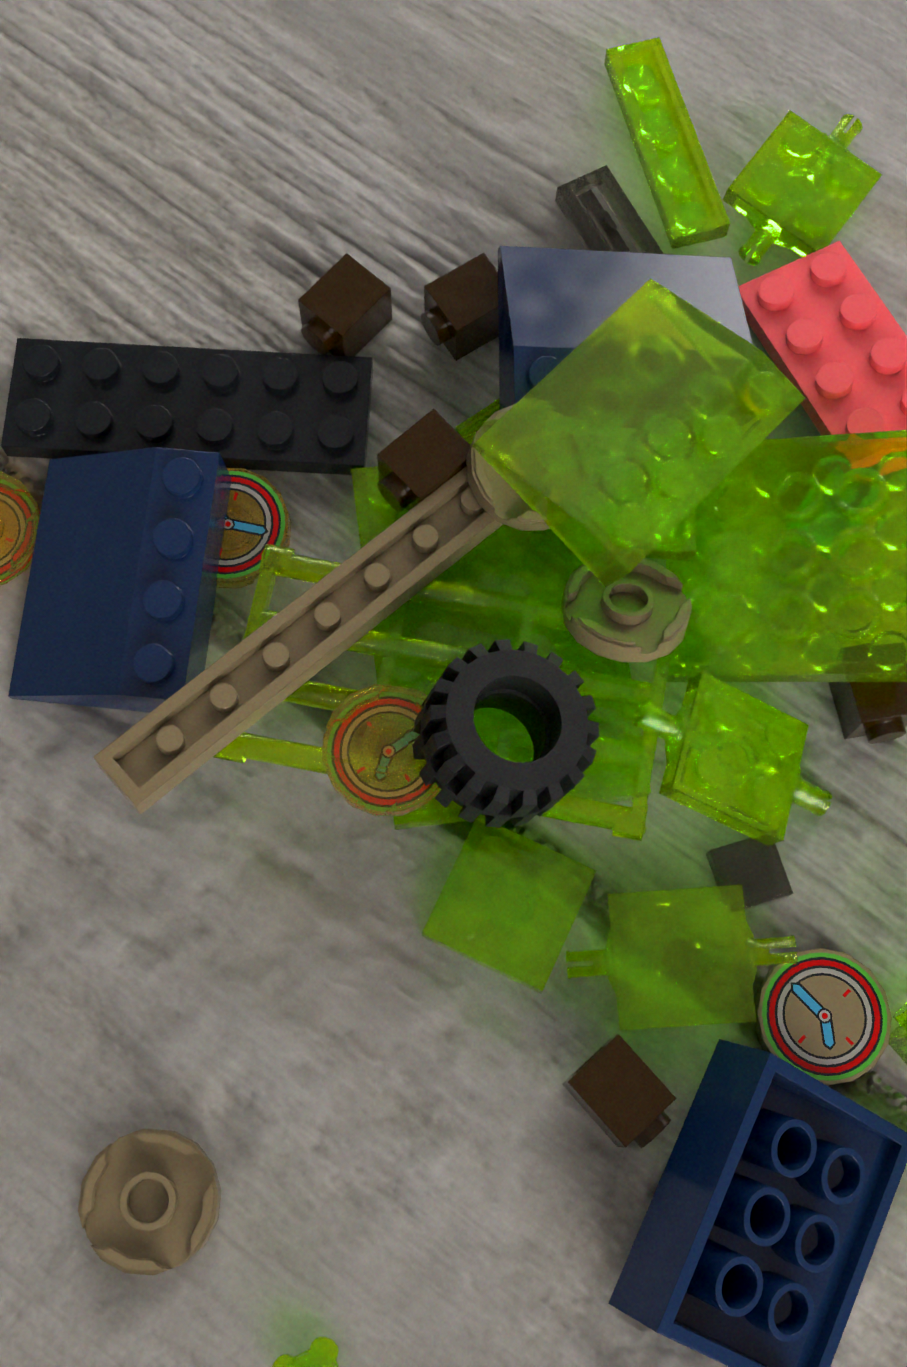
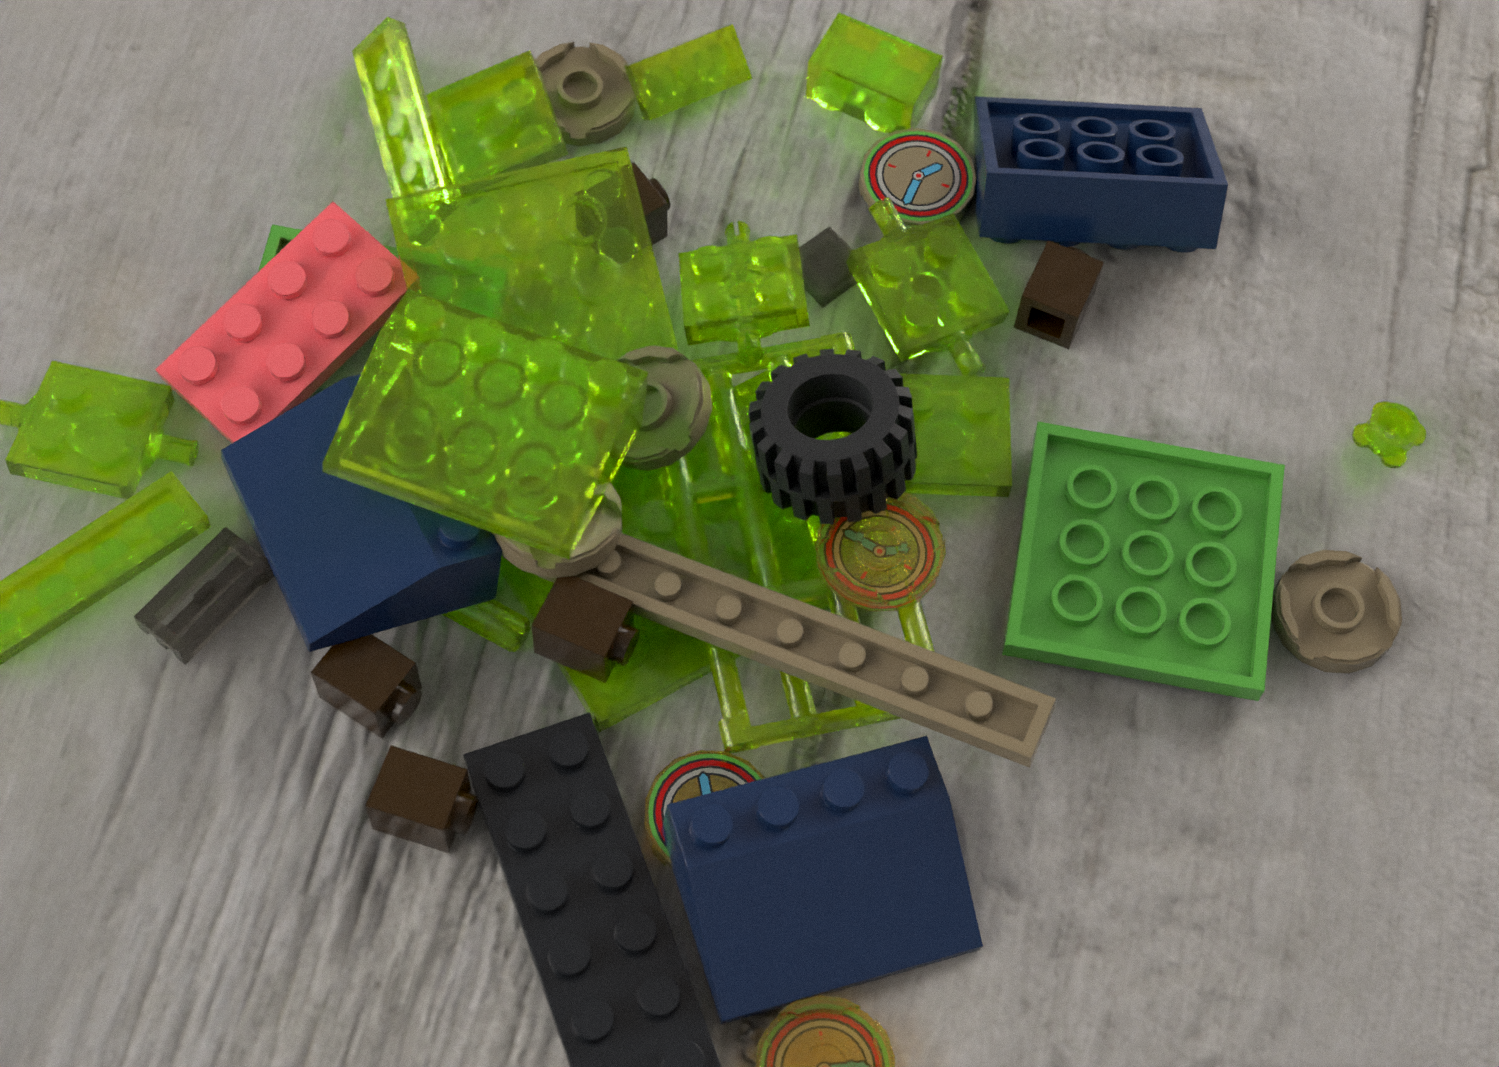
camera: 115 degrees left, 10 degrees down
(285, 1030) = (1146, 561): none -> bright green plate

